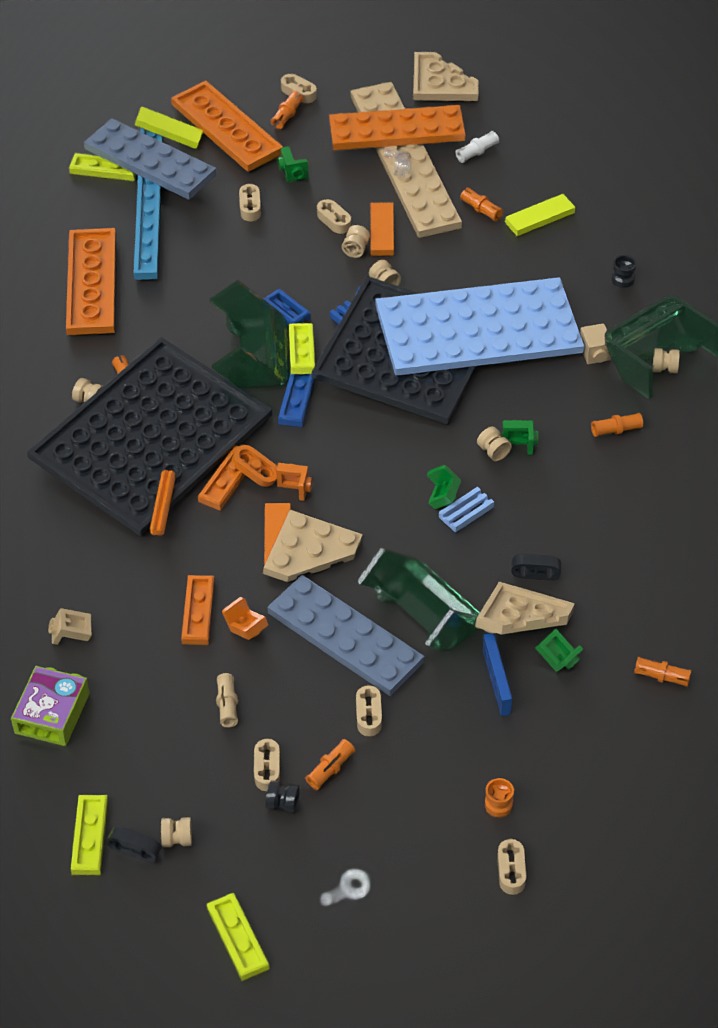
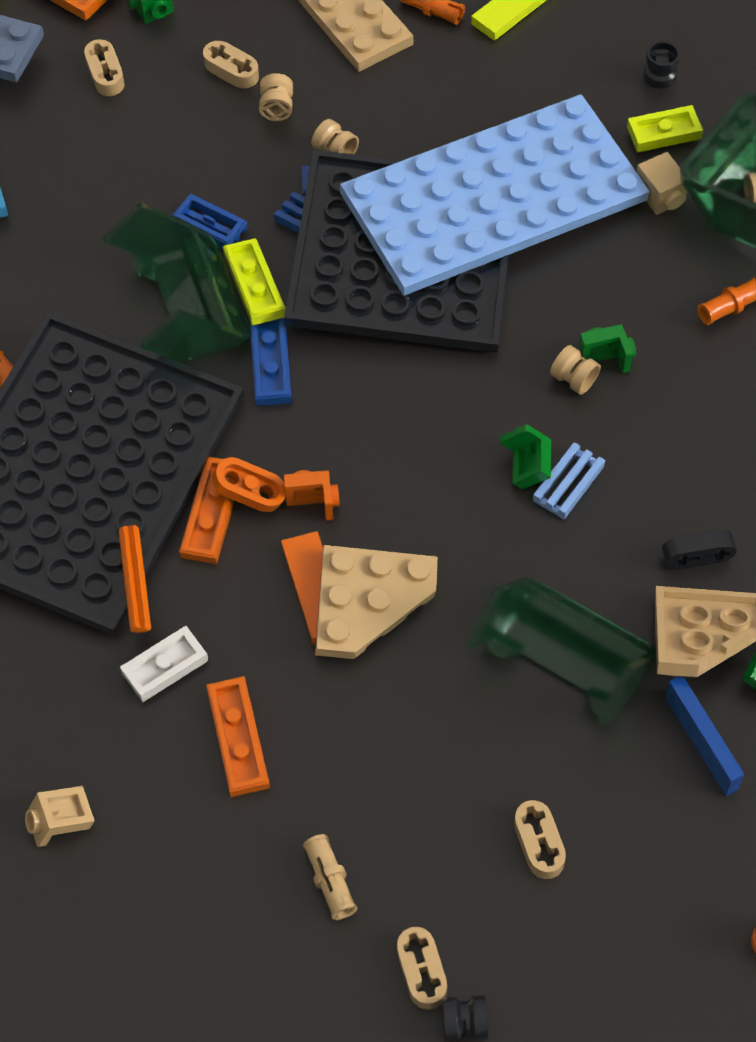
camera: 15 degrees left, 10 degrees up
(50, 705) = (70, 955): brick -> none
(165, 557) = (164, 663): none -> white plate
(243, 620) = (314, 740): orange bracket -> none
(318, 776) = (514, 944): orange pin -> none
(346, 635) = (465, 723): sand blue plate -> none
(382, 229) = (305, 69): orange tile -> none
(609, 310) = (664, 128): none -> neon yellow plate

